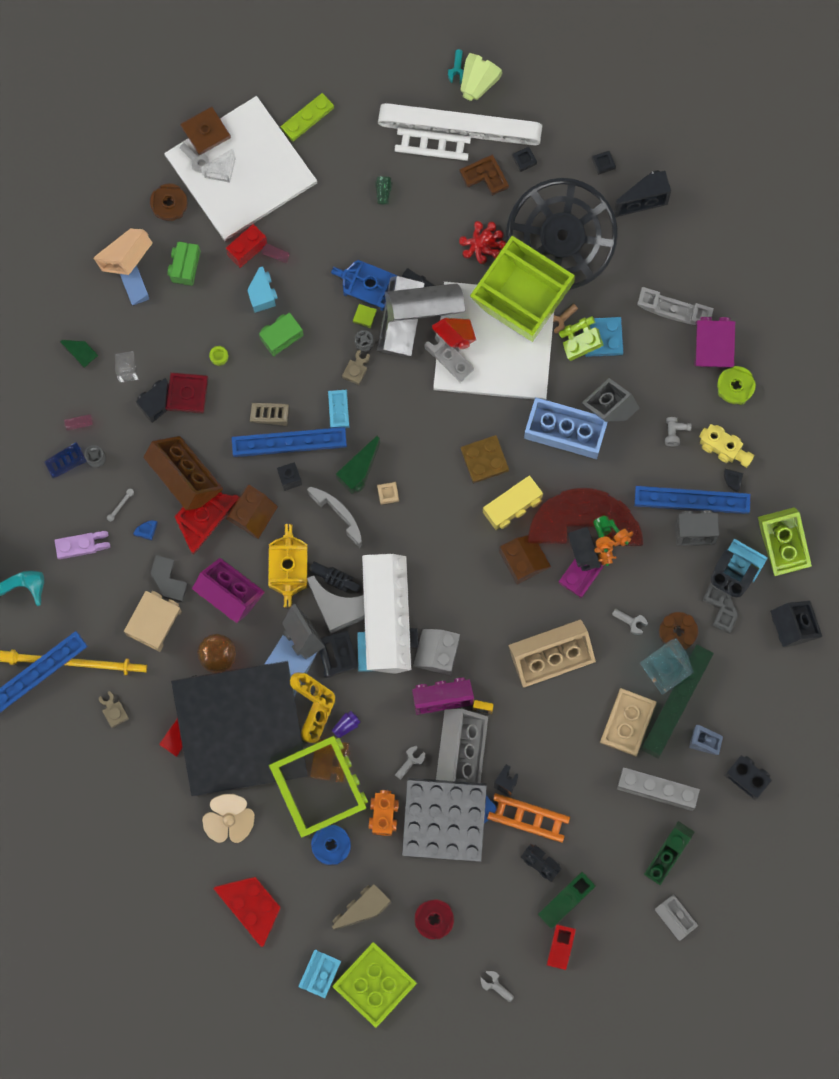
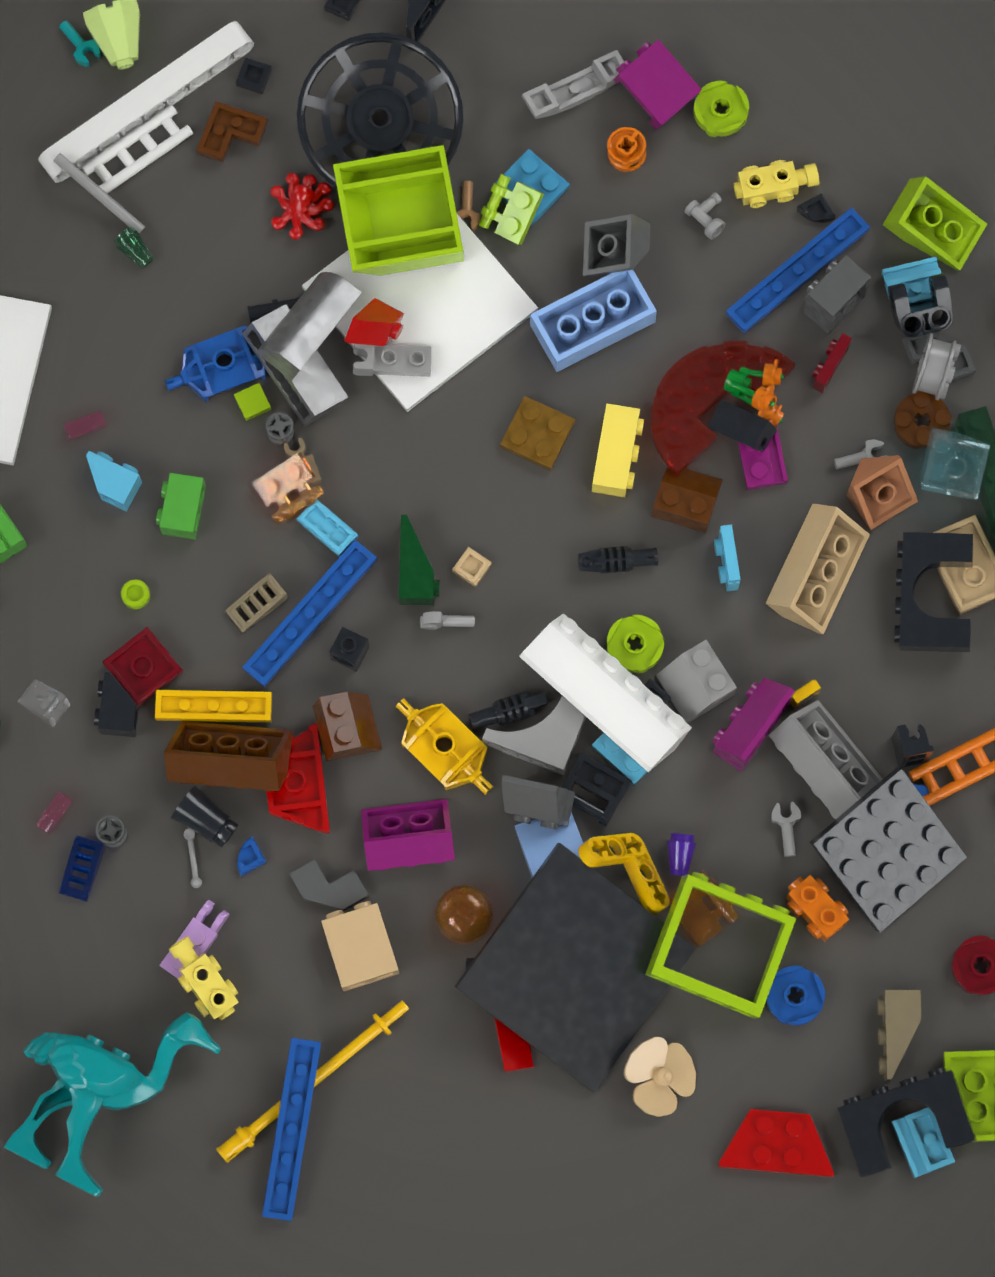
camera: 45 degrees left, 0 degrees up
(66, 571) = (207, 988): none -> light yellow brick
(115, 712) = (418, 1086): dark tan plate -> none
(143, 490) = (204, 818): none -> black plant
(200, 443) = (213, 706): none -> yellow plate
(246, 246) = (46, 446): red brick -> none
(302, 935) = (864, 1117): none -> black arch
(322, 498) = (405, 639): light grey slope -> none
(338, 366) = (282, 481): none -> clear orange plate
(353, 511) = (436, 620): none -> light grey bar
(391, 148) = (98, 193): none -> light grey bar
(433, 595) = (630, 628): none -> lime plate
(459, 555) = (616, 559): none -> black hinge
(515, 602) = (726, 549): none -> medium azure plate
(606, 694) = (920, 554): none -> black arch
(621, 644) = (880, 489): none -> nougat slope
(654, 561) = (836, 352): none -> dark red plate
(668, 361) = (626, 148): none -> orange wheel
(707, 610) = (936, 367): none -> light grey wheel

